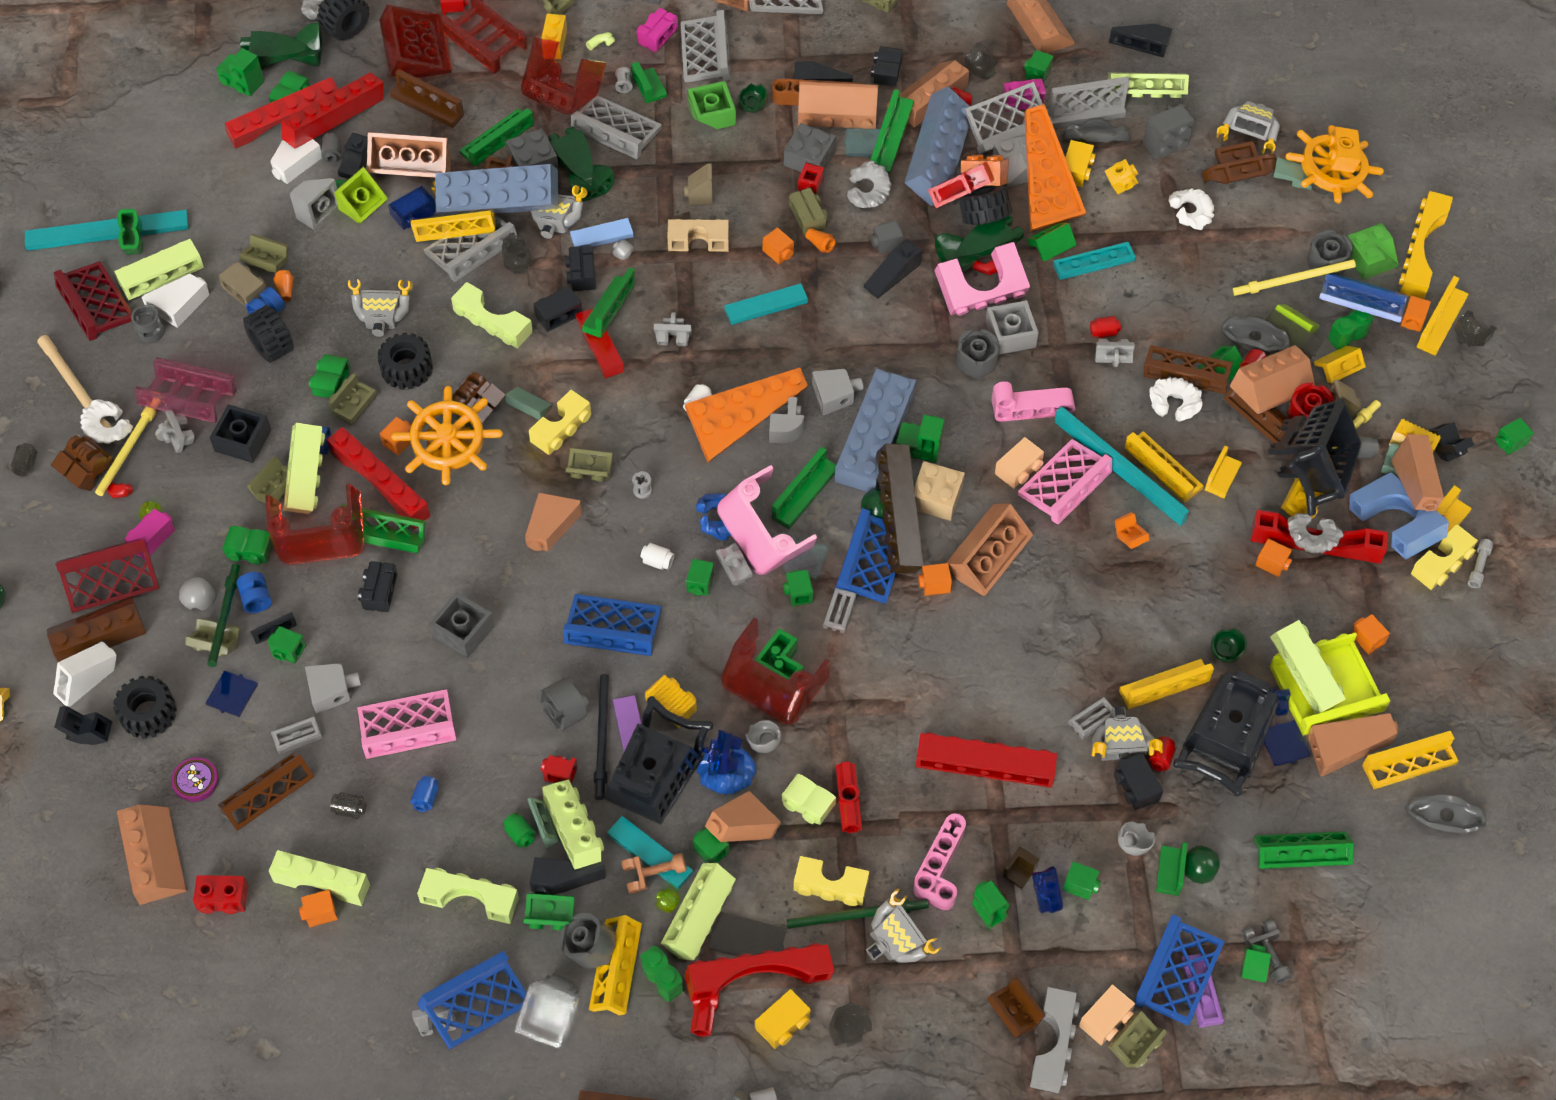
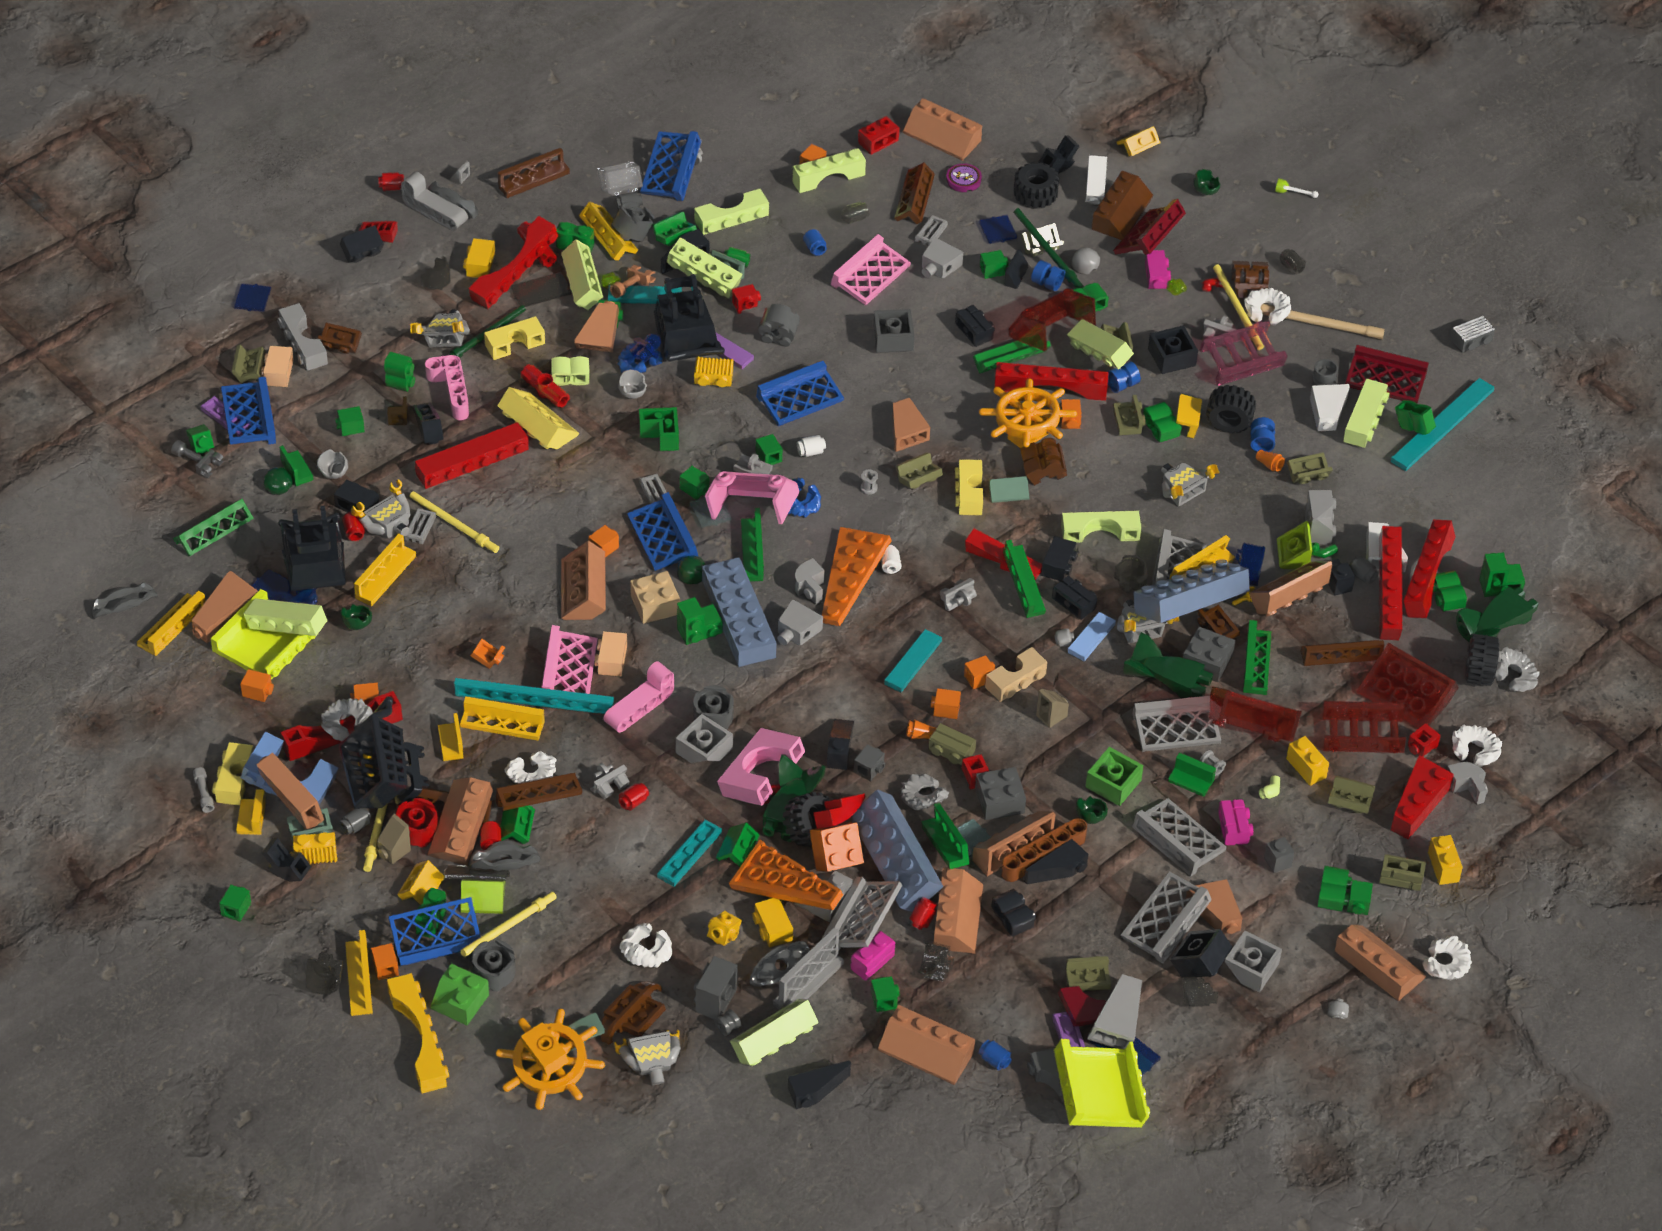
camera: 140 degrees right, 10 degrees down
(241, 283) = (1297, 441): dark tan brick -> none
(300, 362) = (1189, 413): none -> yellow panel
(400, 348) = (1122, 457): black tyre -> none
(600, 774) = (718, 313): black bar -> none
(725, 255) = (976, 671): none -> orange brick
(766, 689) = (686, 411): clear red windscreen -> none
(887, 761) = (536, 418): none -> light yellow slope
(899, 509) = (668, 557): dark brown brick -> none
(998, 834) = (428, 423): none -> black slope
(1046, 662) = (481, 539): none -> light yellow bar
(1047, 890) = (367, 402): clear blue hips -> none

